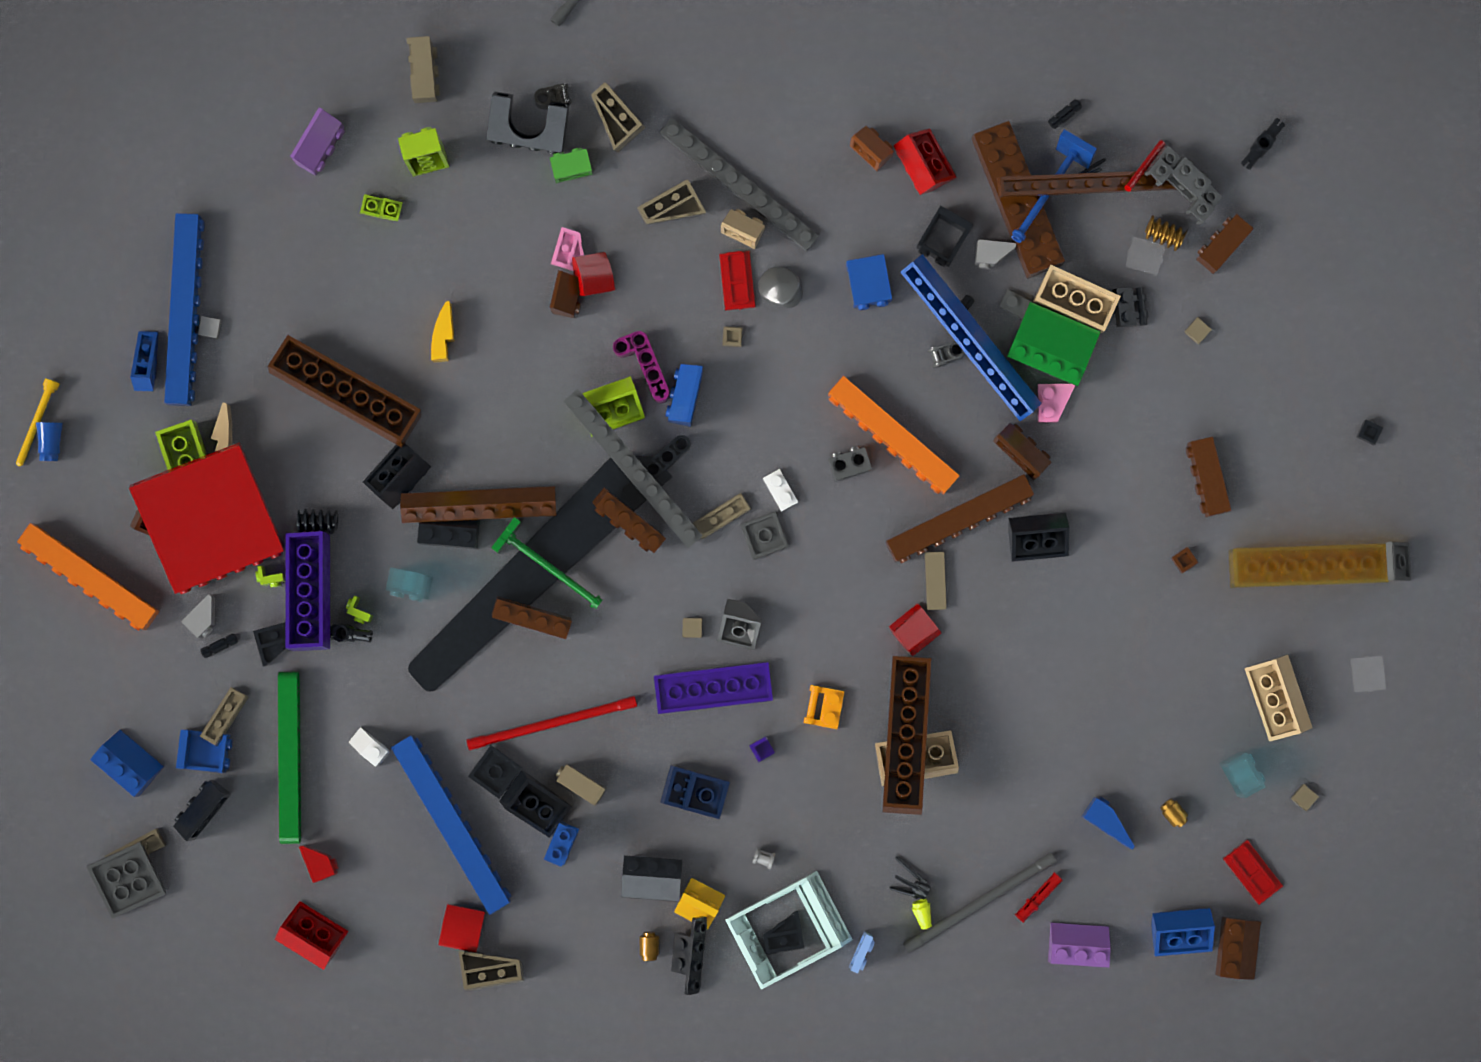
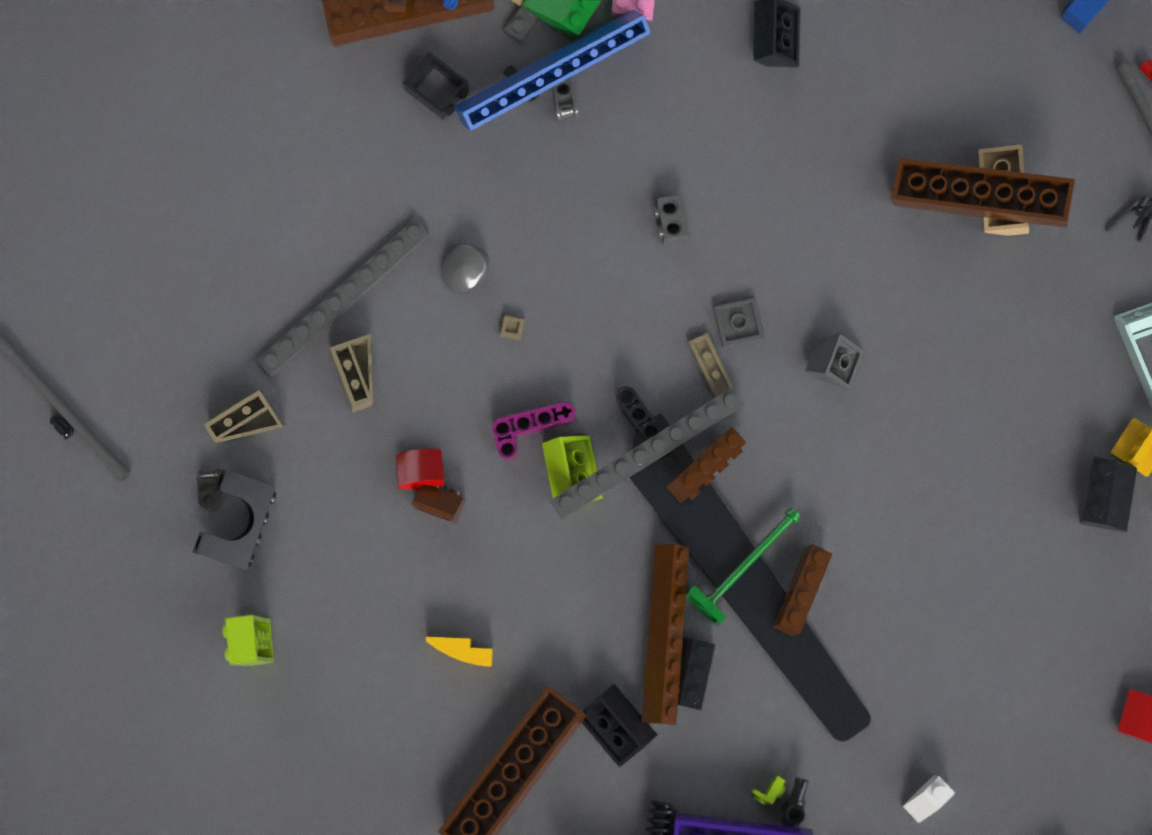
camera: 75 degrees left, 5 degrees down
(317, 142) = (216, 767): medium lavender slope -> none
(380, 208) = (304, 704): lime slope -> none
(409, 583) = (747, 726): clear light blue brick -> none
(423, 69) = (152, 632): dark tan wedge -> none
(451, 825) = (1026, 714): blue brick -> none
(484, 740) = (934, 665): red piece -> none
(495, 771) = (971, 656): black plate -> none
(535, 804) = (1012, 616): black slope -> none
(561, 844) = (1065, 589): blue panel -> none
(567, 246) = (386, 495): bright pink wing -> none
(571, 165) = (291, 478): bright green brick -> none
(580, 784) = (998, 558): dark tan slope -> none
(684, 394) = (571, 385): blue slope -> none
(692, 628) = (831, 414): dark tan tile -> none
(695, 792) = (1016, 436): dark blue slope -> none
(713, 688) = (902, 400): dark purple plate -> none
(737, 280) = (450, 314): red piece -> none
(742, 228) = (394, 297): tan slope -> none
(762, 749) = (975, 356): dark purple panel -> none
(764, 858) = (1096, 369): light grey bush -> none
(780, 490) = (690, 298): white plate -> none
(830, 707) = (937, 277): light orange plate -> none
(869, 282) = (474, 170): blue panel -> none
(871, 147) = (327, 148): dark orange slope -> none
(893, 435) = (646, 169): orange brick -> none
(914, 630) = (862, 176): red slope -> none
(924, 161) = (350, 96): red slope -> none
(935, 580) = (810, 147): dark tan tile -> none
(959, 518) = (747, 112): reddish brown brick -> none
(991, 253) = (462, 40): light grey slope -> none
(1022, 450) = (683, 36): reddish brown slope -> none

